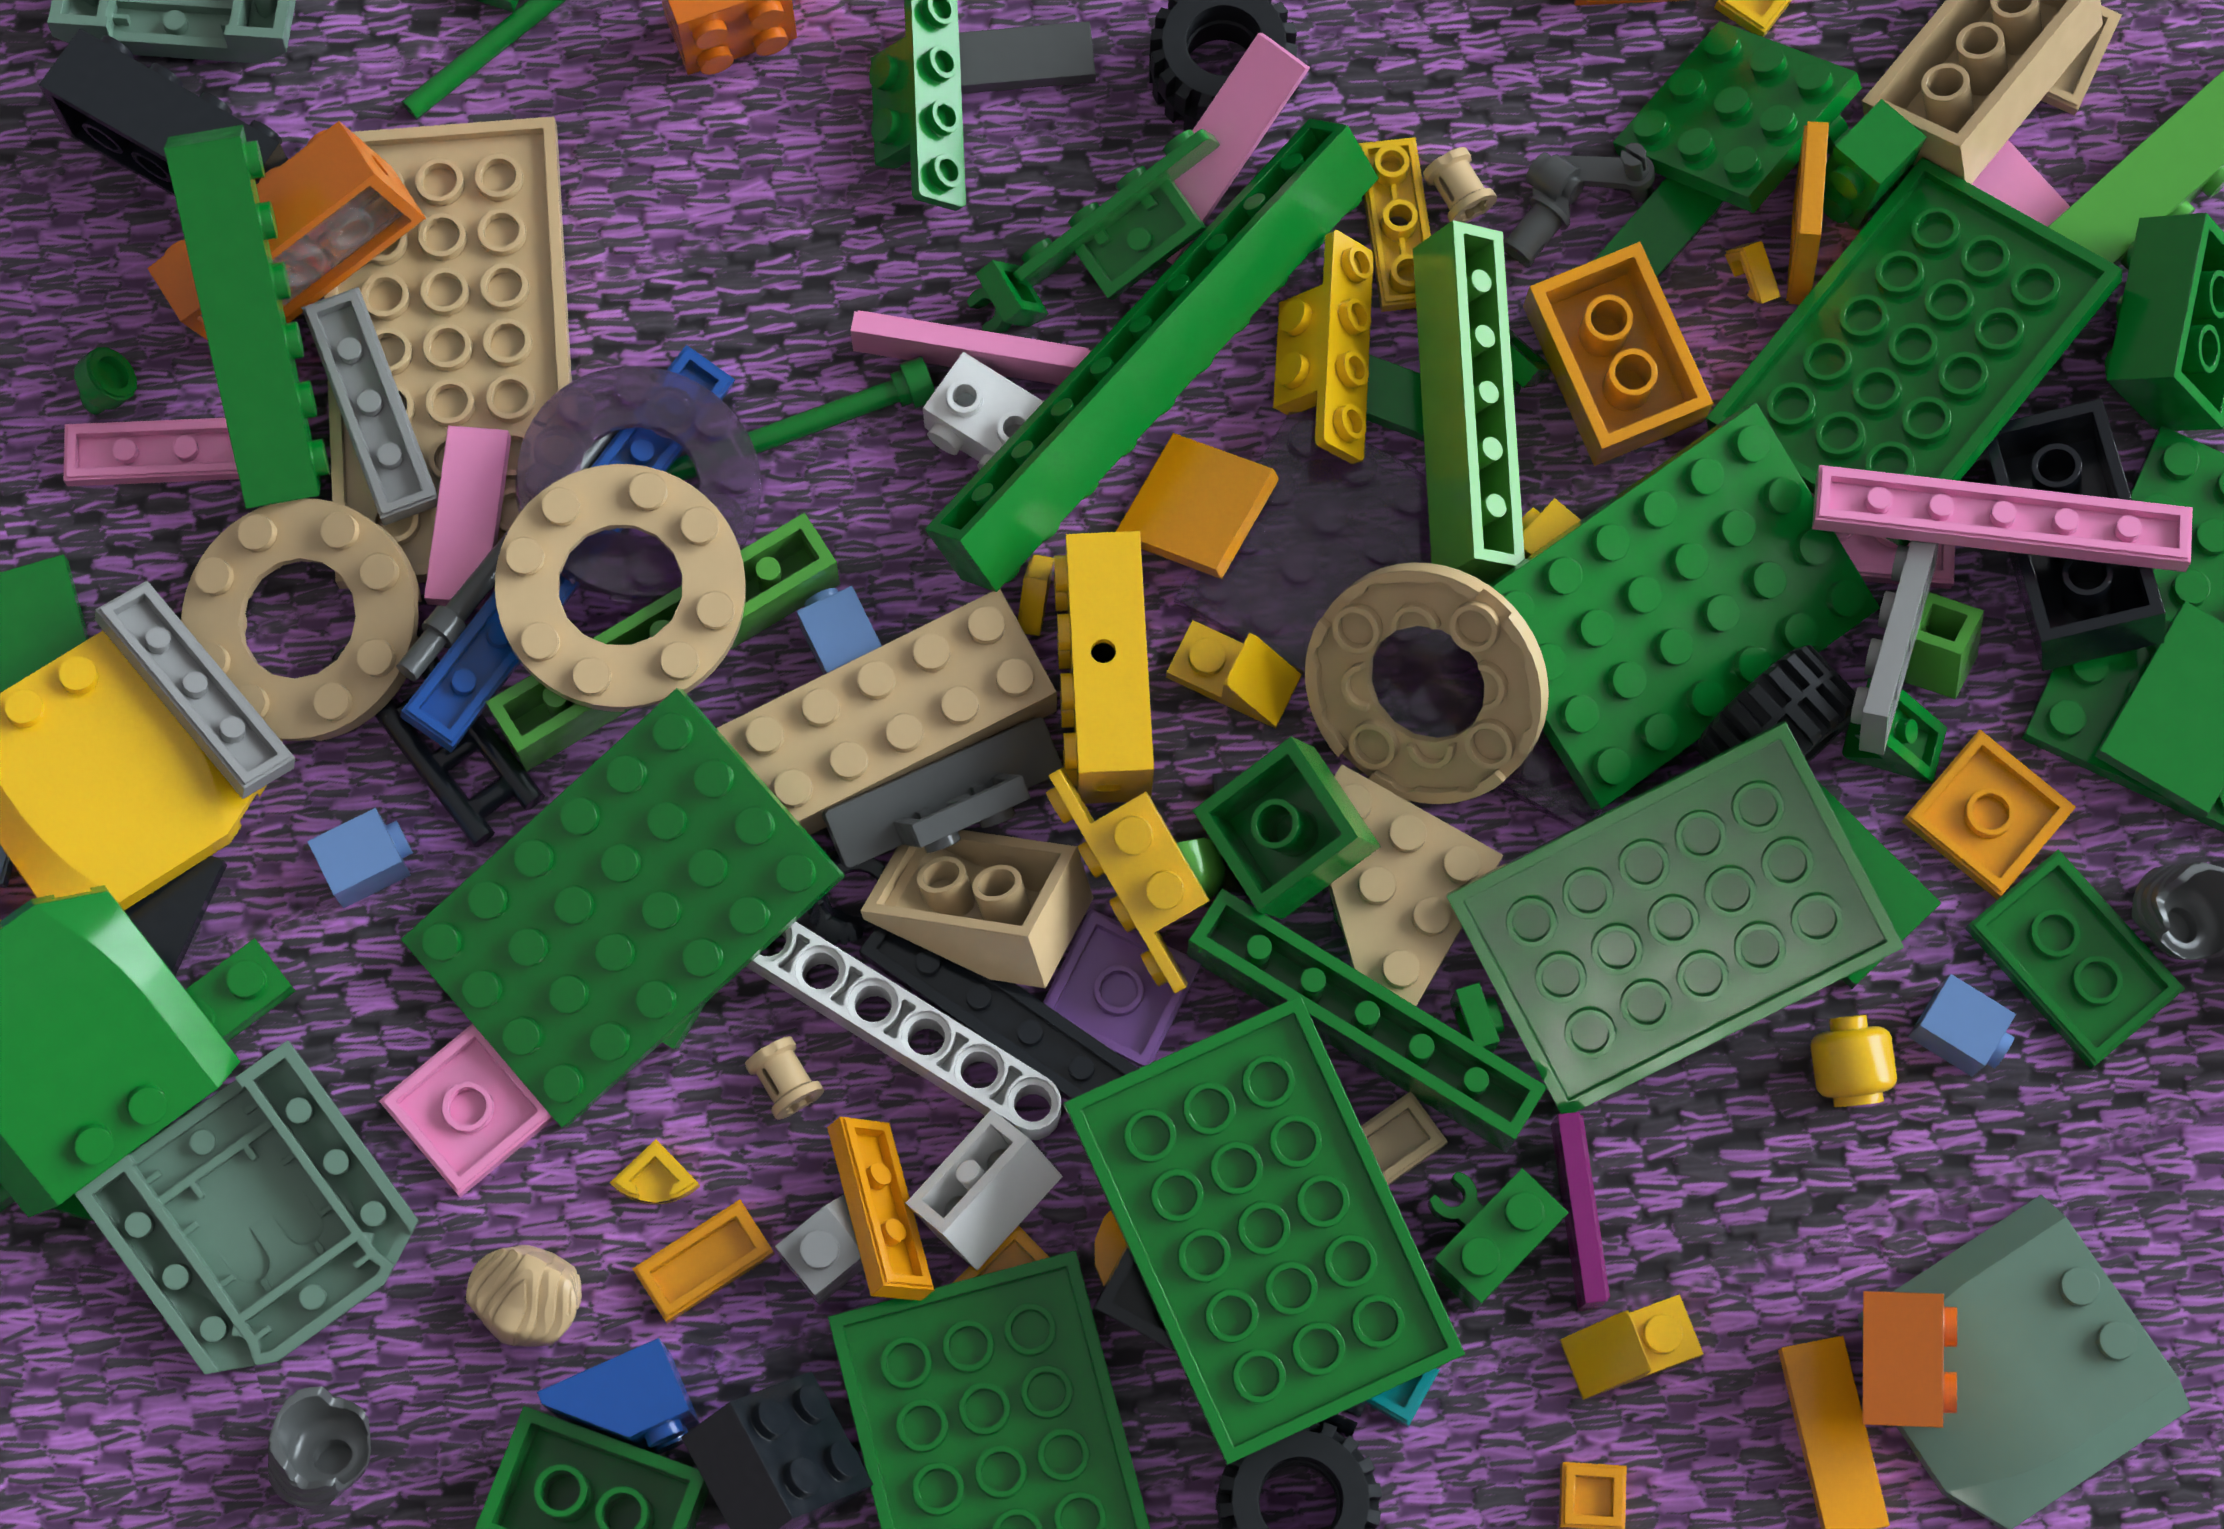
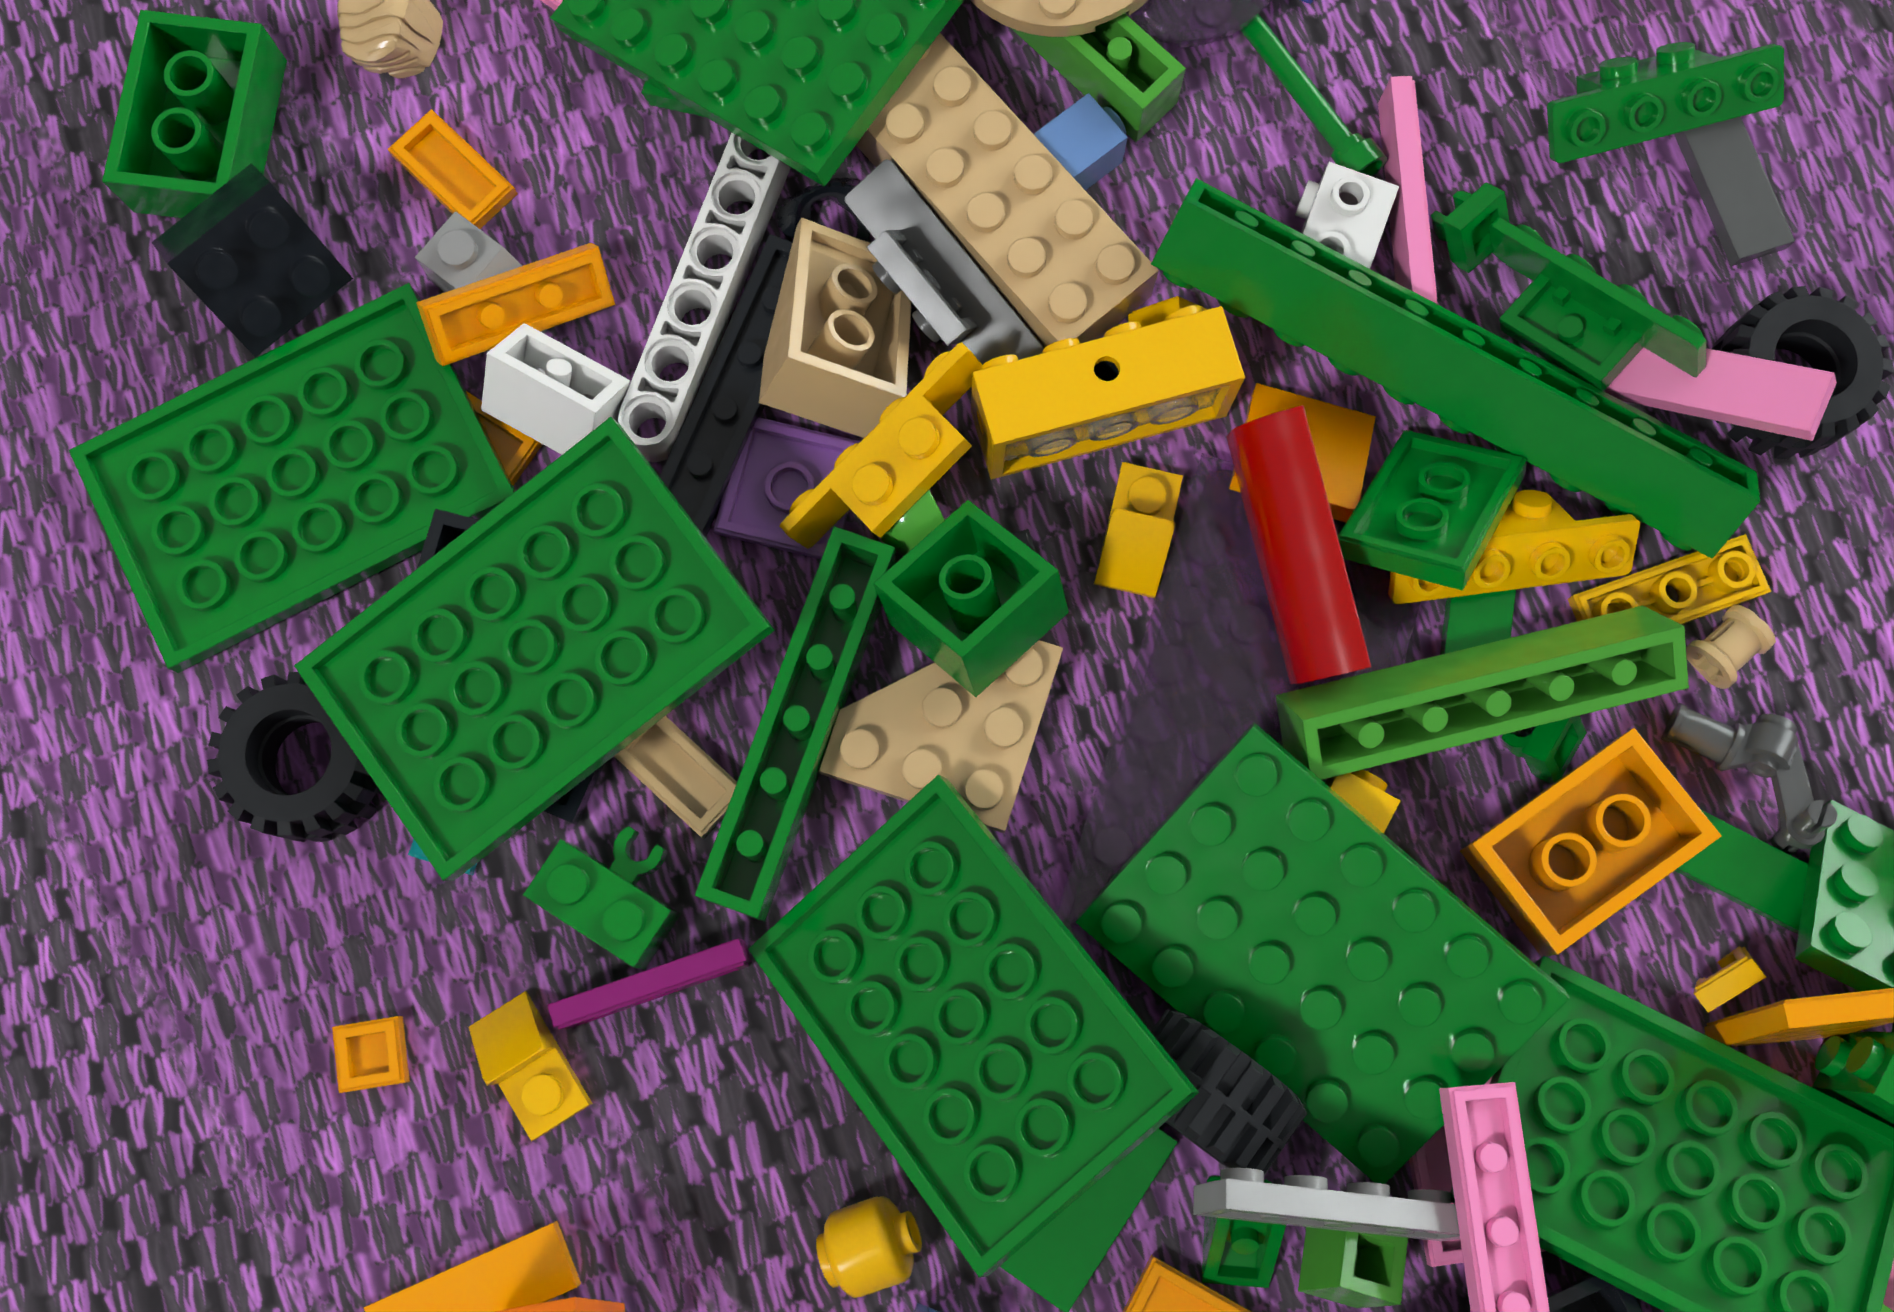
camera: 80 degrees right, 5 degrees up
(628, 1399) = (287, 123): blue slope -> none
(655, 1177) = (524, 111): yellow tile -> none
(784, 1077) = (635, 197): tan bush -> none
(1287, 403) = (1432, 509): none -> green tile
(1305, 526) = (1297, 546): none -> red brick
(1477, 1017) = (828, 841): green plate -> none
(1479, 622) = (1227, 736): tan plate -> none

